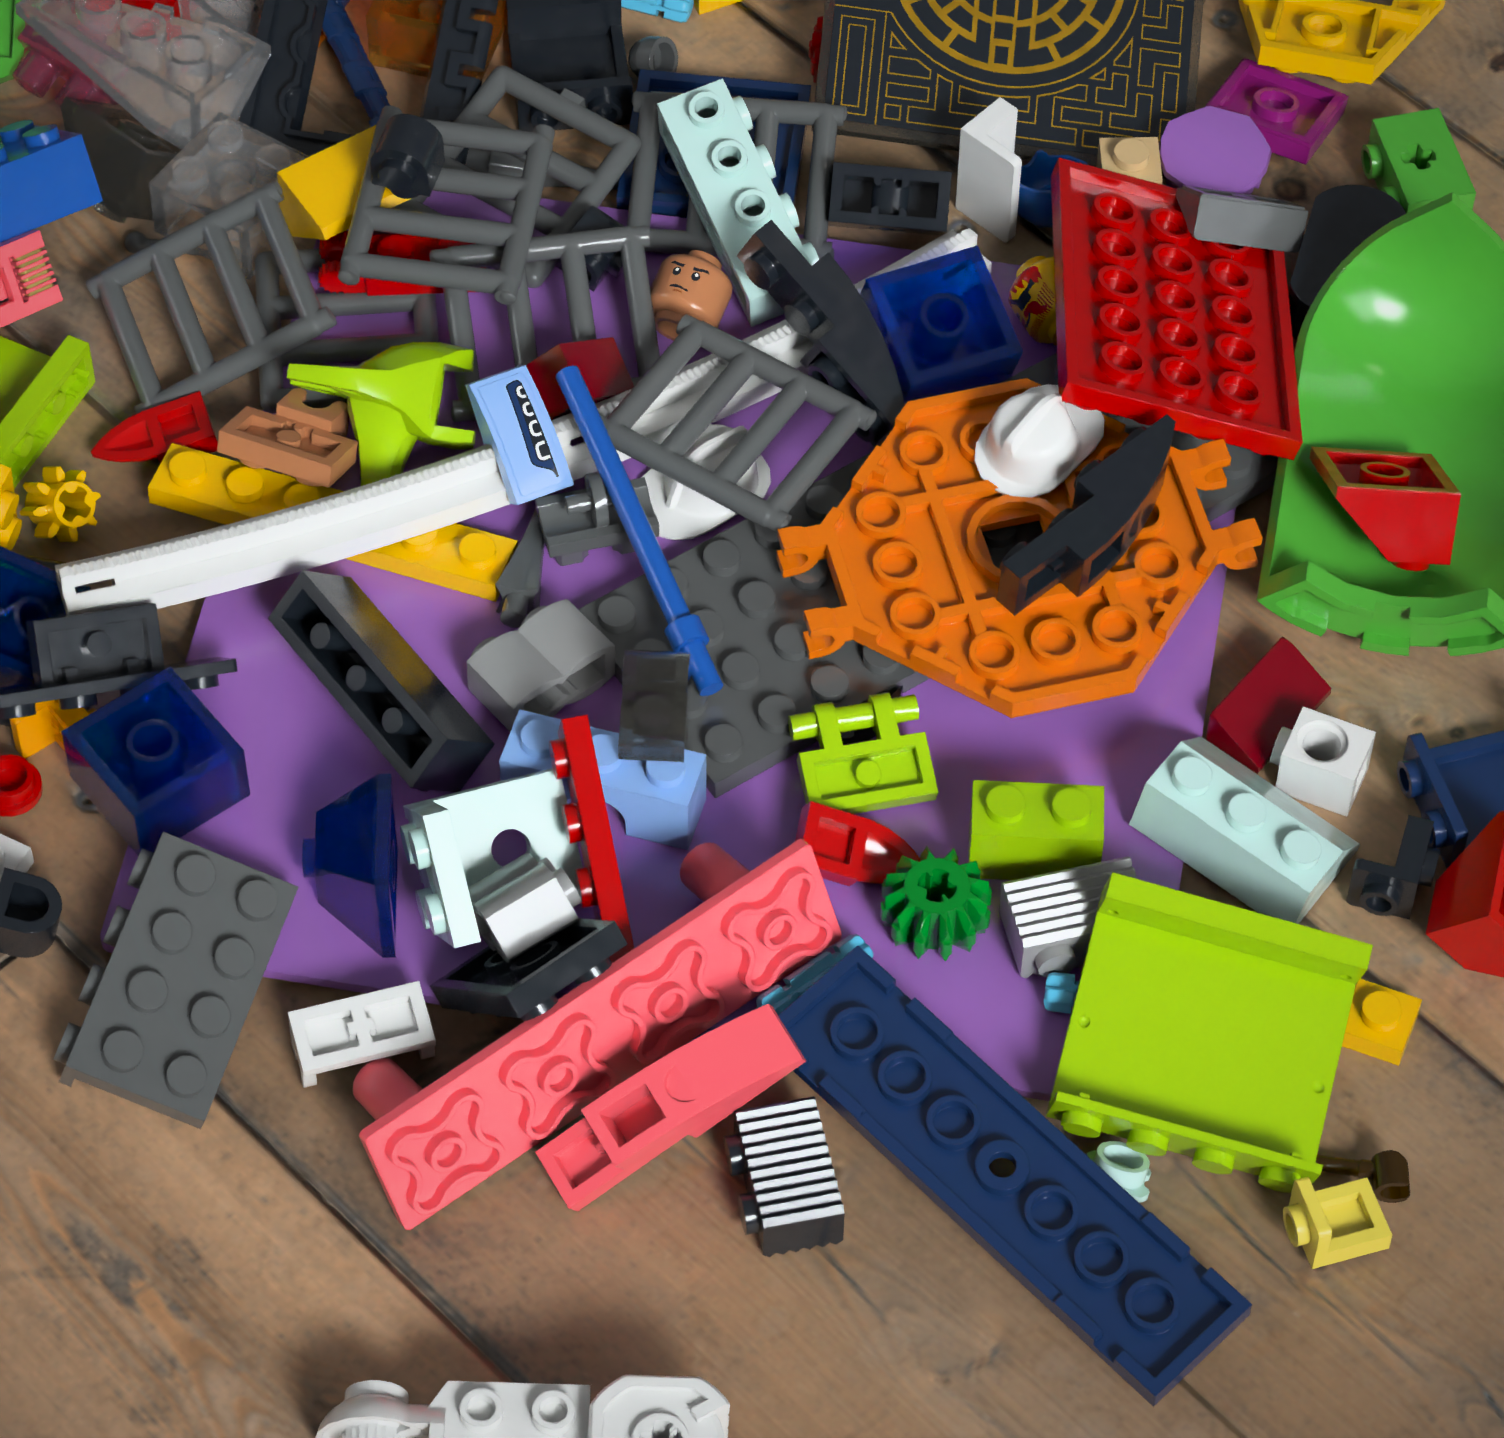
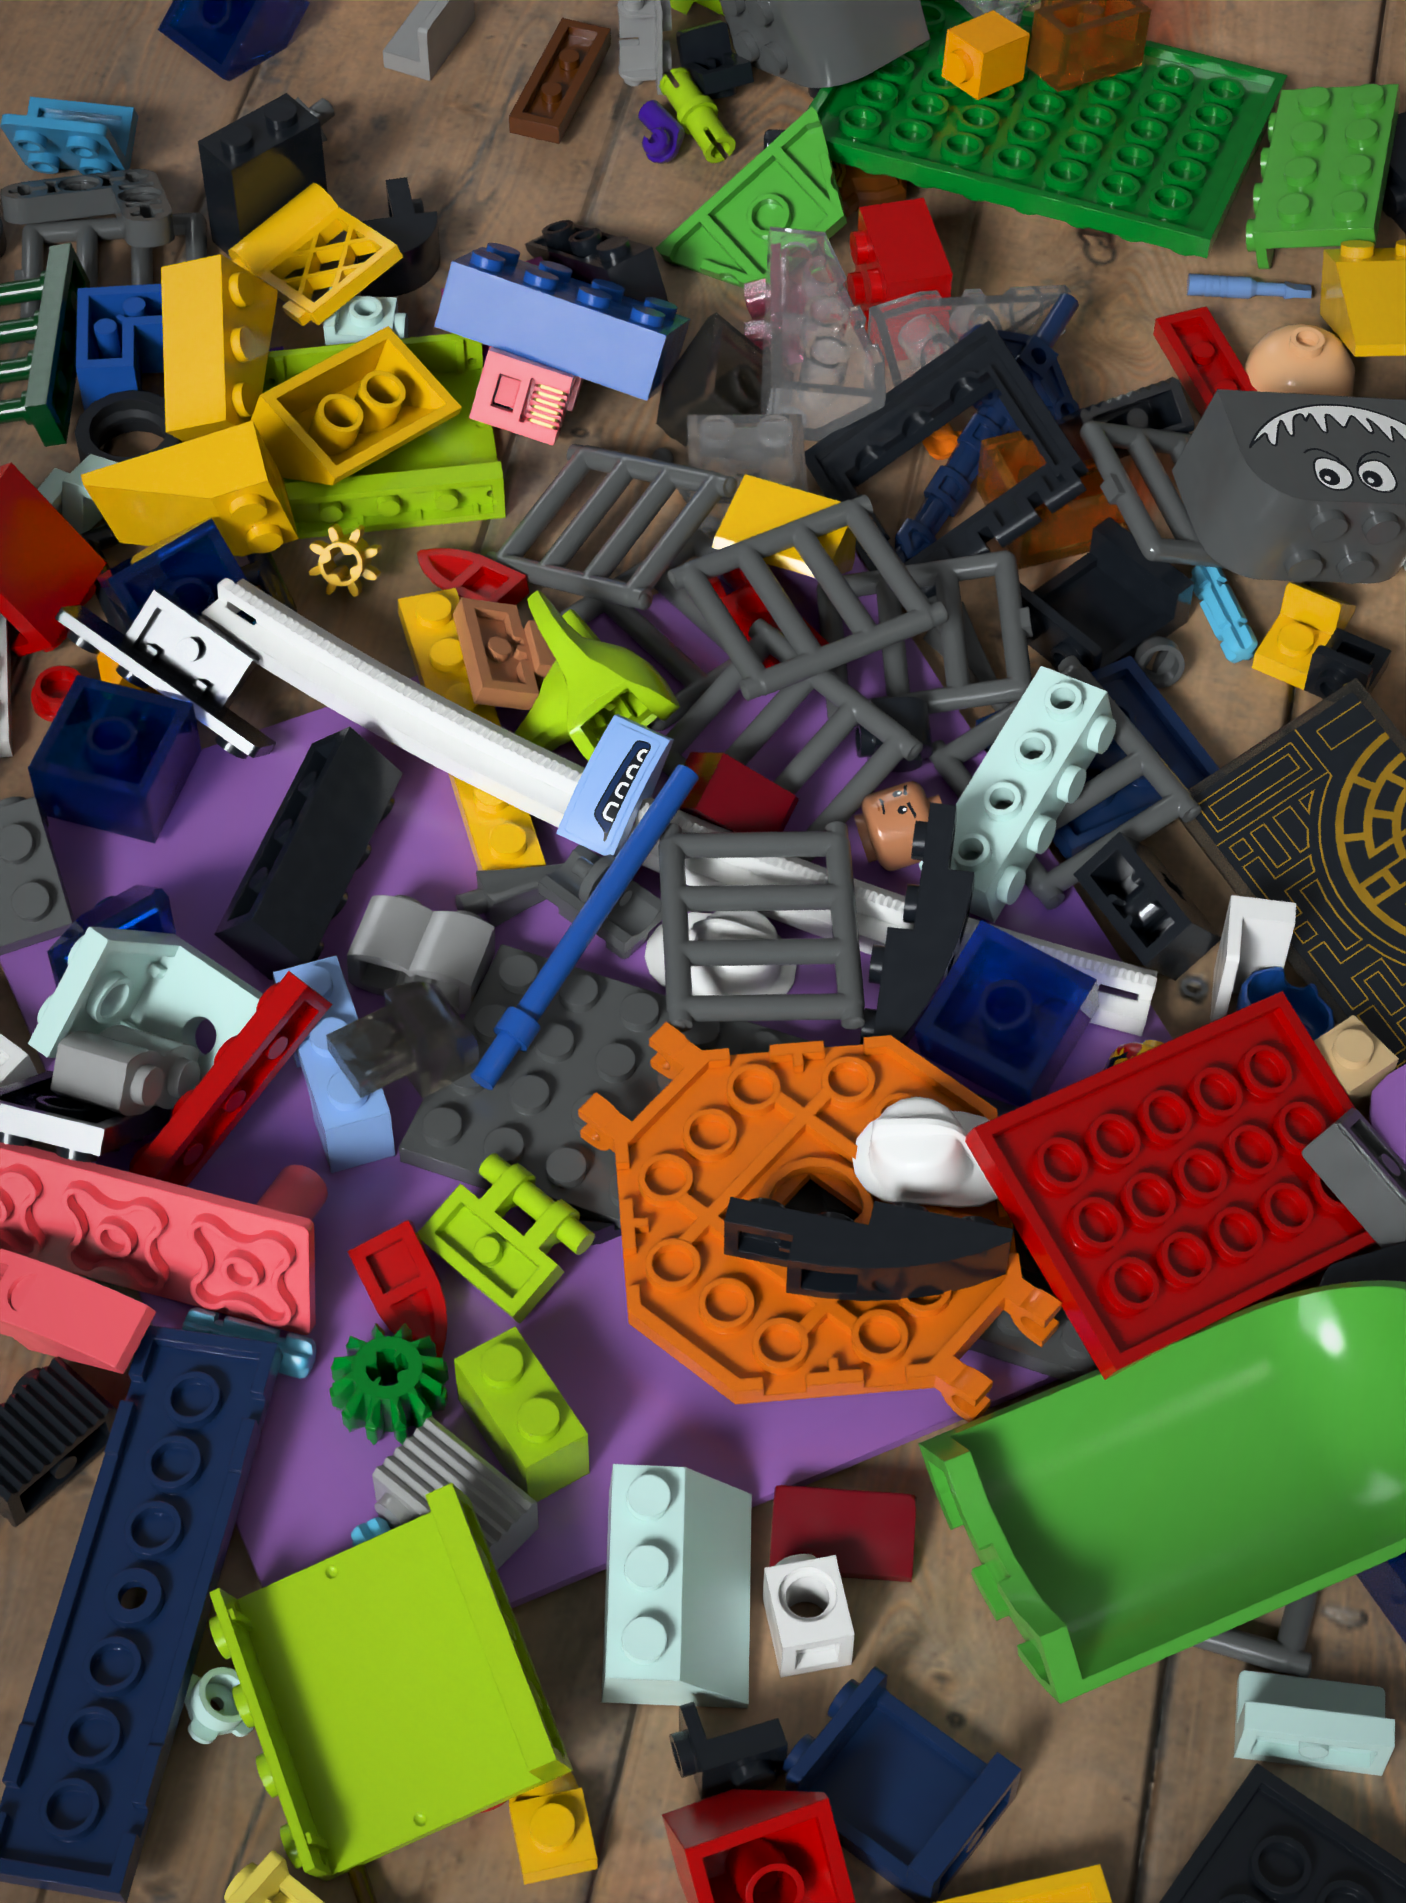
camera: 55 degrees right, 0 degrees up
(408, 156) = (799, 531): black plate -> none
(1397, 501) = (1123, 1484): red slope -> none

